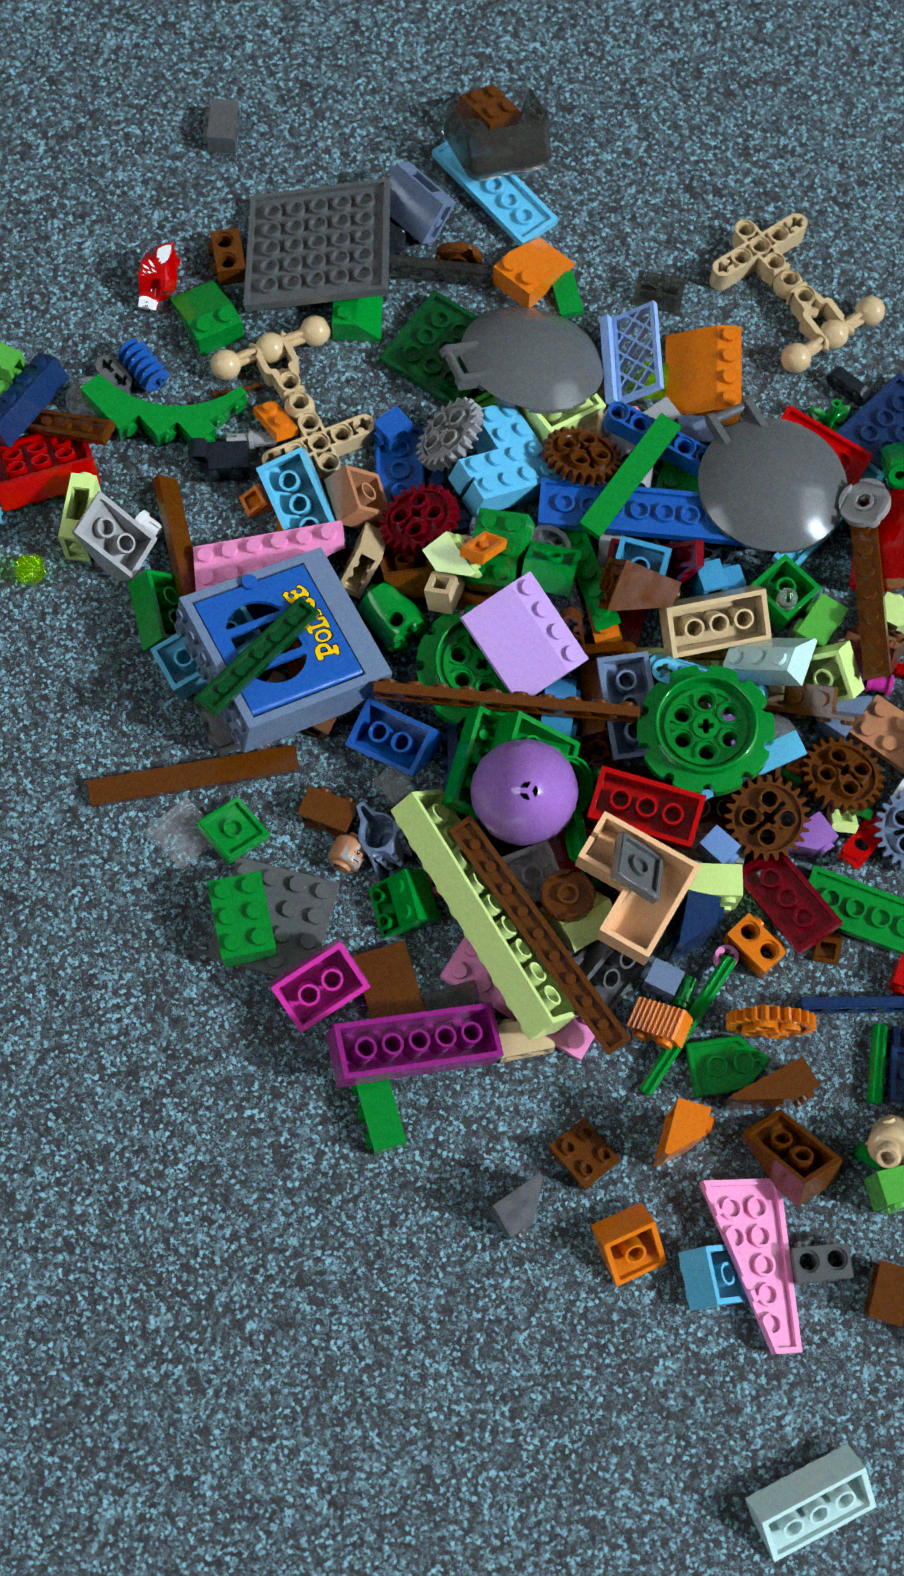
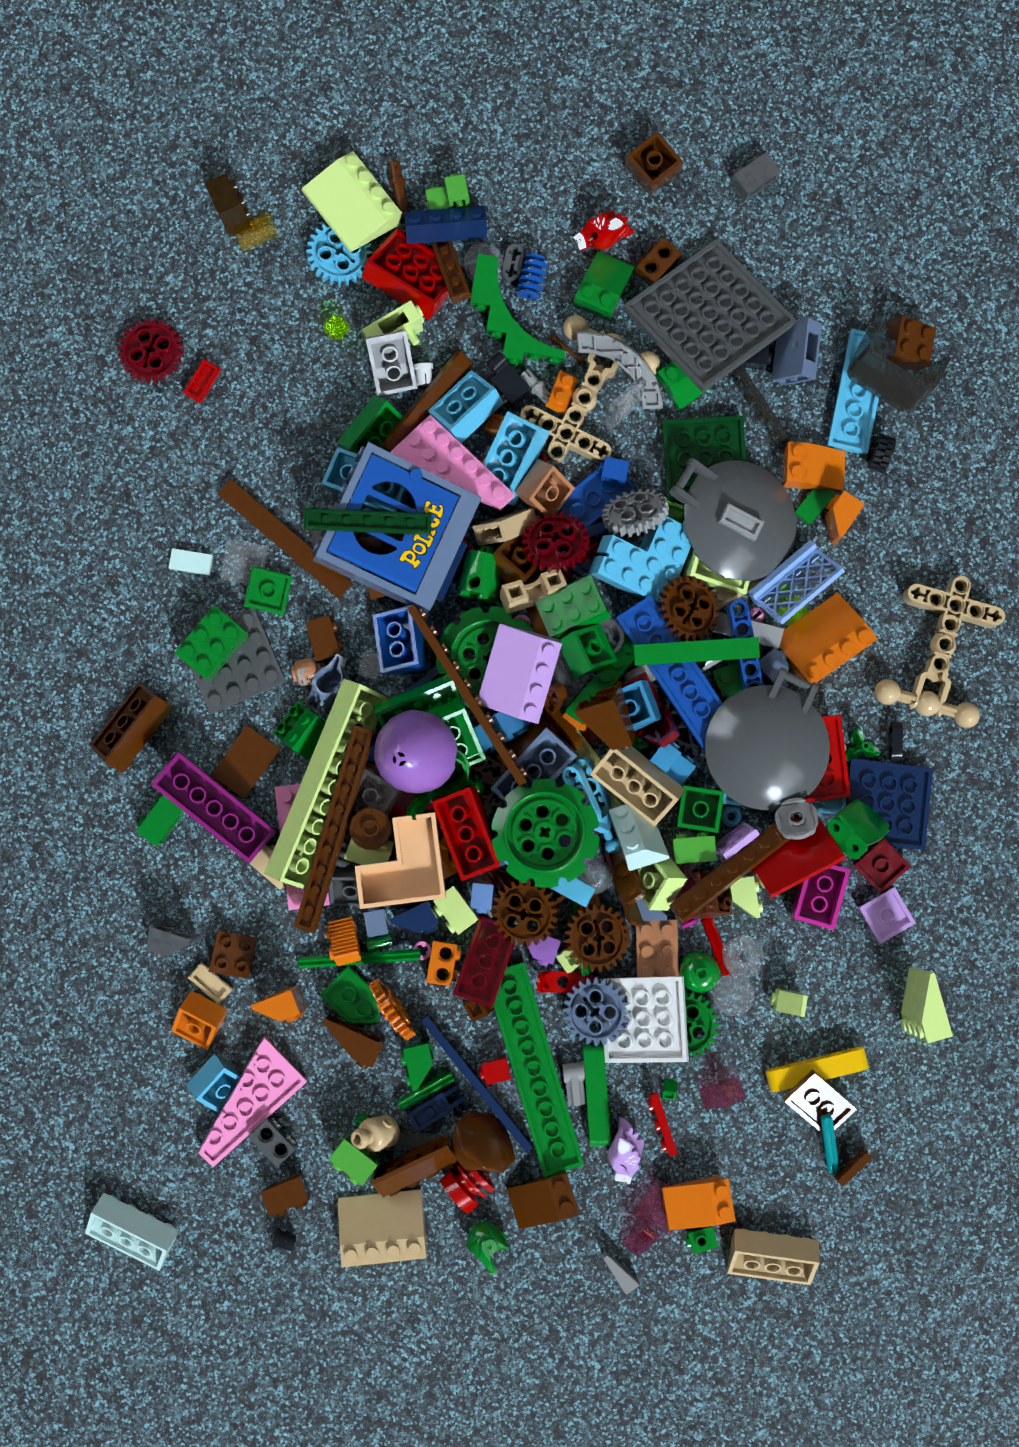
camera: 55 degrees right, 15 degrees up
(134, 192) = (653, 163): none -> reddish brown brick
(136, 884) = (190, 562): none -> light aqua tile
(213, 508) = (466, 406): none -> medium azure slope
(256, 1075) = (130, 727): none -> reddish brown slope
(299, 337) = (626, 358): none -> light grey tile
(319, 984) = (208, 721): dark pink brick -> none
(340, 360) = (625, 403): none -> clear tile
(445, 557) = (537, 586): yellowish green slope -> none
(452, 996) = (264, 805): clear smoke tile -> none
(459, 253) = (779, 412): reddish brown tile -> none
(483, 548) = (555, 601): orange plate -> none
(539, 348) = (741, 522): none -> light grey tile
(569, 205) = (882, 453): none -> black tyre
(596, 1203) = (210, 983): none -> tan tile
(600, 275) = (841, 514): none -> orange slope
(637, 867) = (413, 859): dark grey tile -> none
(663, 289) = (865, 563): clear smoke hinge -> none
(782, 596) = (687, 812): clear hinge -> none
(792, 1157) = (323, 1079): reddish brown slope -> none
(815, 569) = (731, 809): none -> dark azure plate
(840, 577) = (735, 840): none -> lavender plate
(846, 1042) = (419, 1059): none -> green slope

